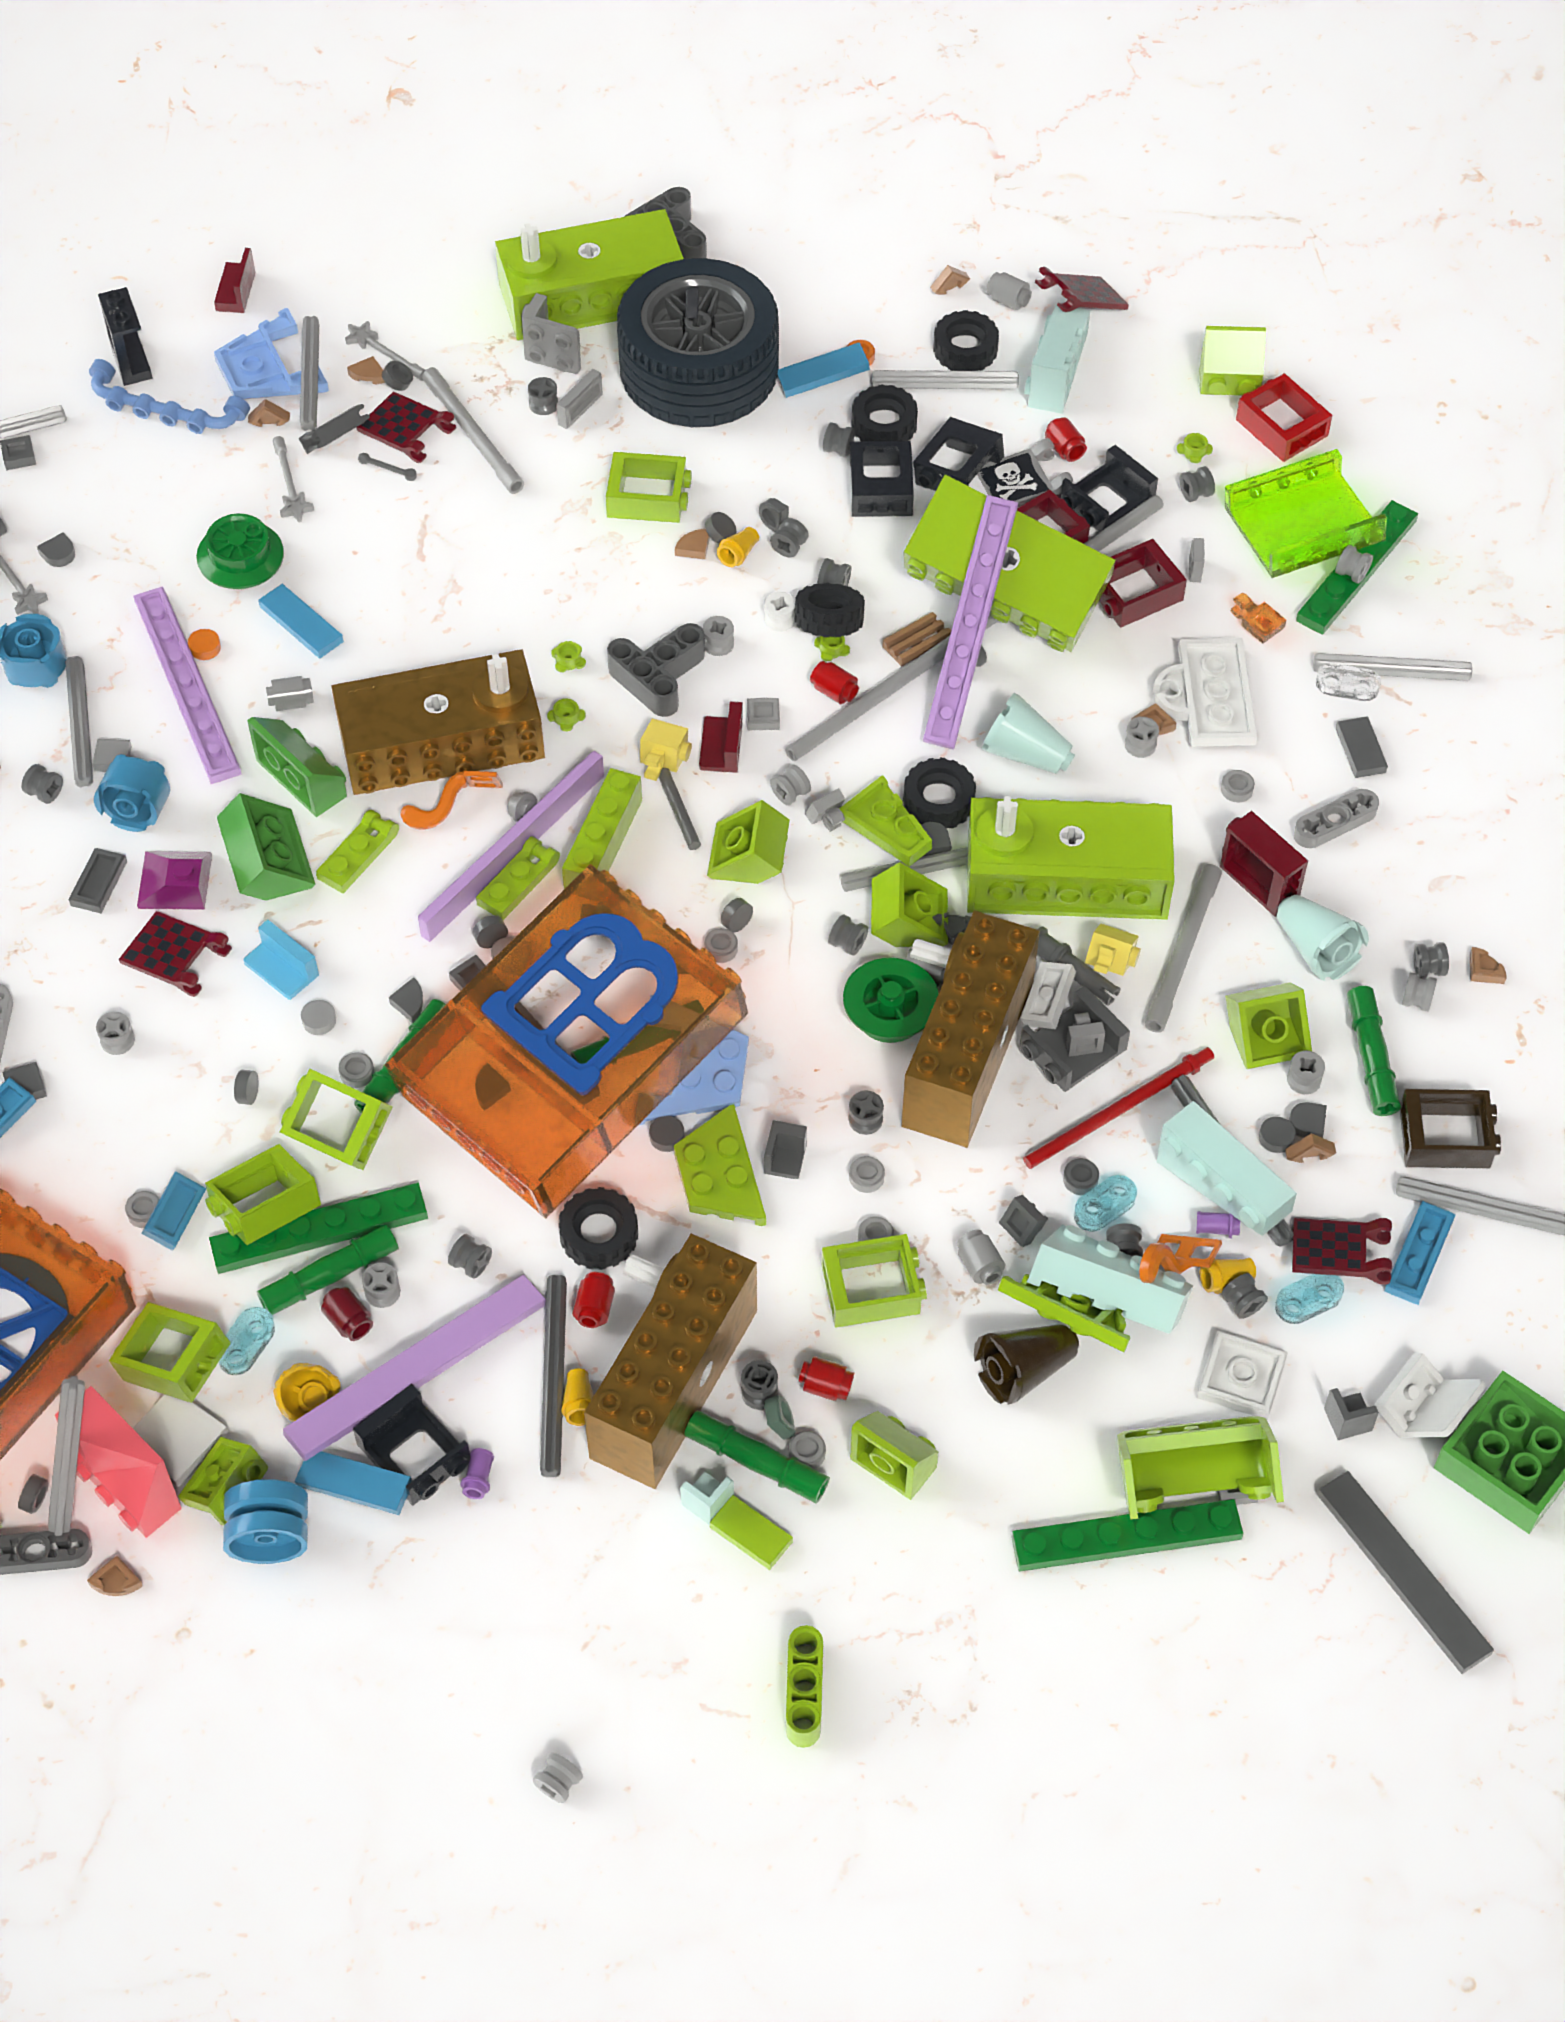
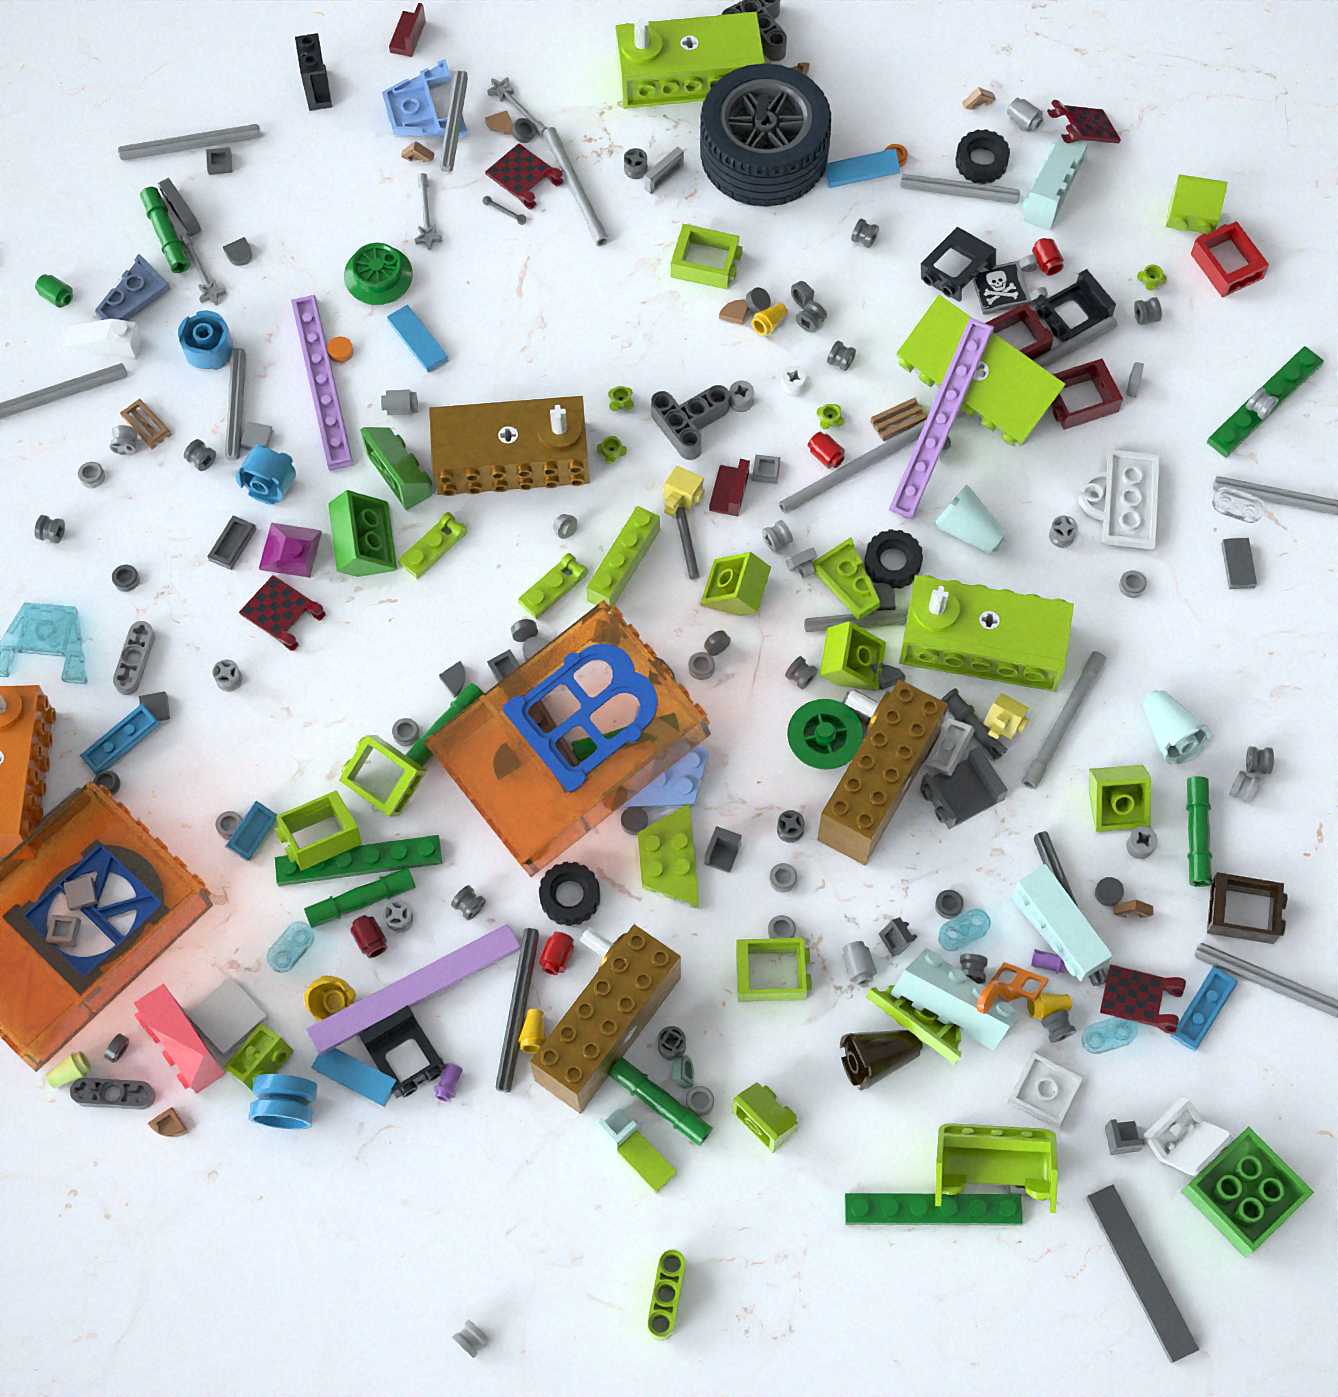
camera: 10 degrees right, 10 degrees up
(66, 1455) = (138, 1035): light grey axle -> none
(170, 412) = (340, 140): medium blue bar -> none
(186, 1376) = (241, 972): lime window -> none
(246, 1087) = (319, 736): tile -> none
(282, 961) = (361, 633): medium azure panel -> none
(318, 1017) = (383, 683): light grey tile -> none
(333, 429) = (466, 172): dark grey piece -> none
(425, 820) = (488, 525): orange piece -> none
(491, 863) = (550, 558): lavender tile -> none
(547, 340) = (645, 117): light grey bracket -> none
(826, 1379) = (723, 1046): red brick -> none
(829, 610) = (828, 398): black tyre -> none
(881, 494) = (893, 288): black window -> none
(884, 398) = (905, 200): black tyre -> none
(1085, 1036) = (971, 787): light grey tile -> none
(1163, 720) = (1079, 514): medium nougat tile -> none
(1189, 1064) = (1051, 821): red bar -> none
(1258, 620) = (1176, 440): clear orange plate -> none
(1262, 861) = (1139, 658): dark red window -> none
(1301, 514) = (1228, 351): clear neon green panel -> none
(1308, 1119) = (1136, 883): dark grey tile -> none
(1343, 806) = (1213, 614): light grey beam -> none
(1485, 968) = (1302, 771): medium nougat tile -> none

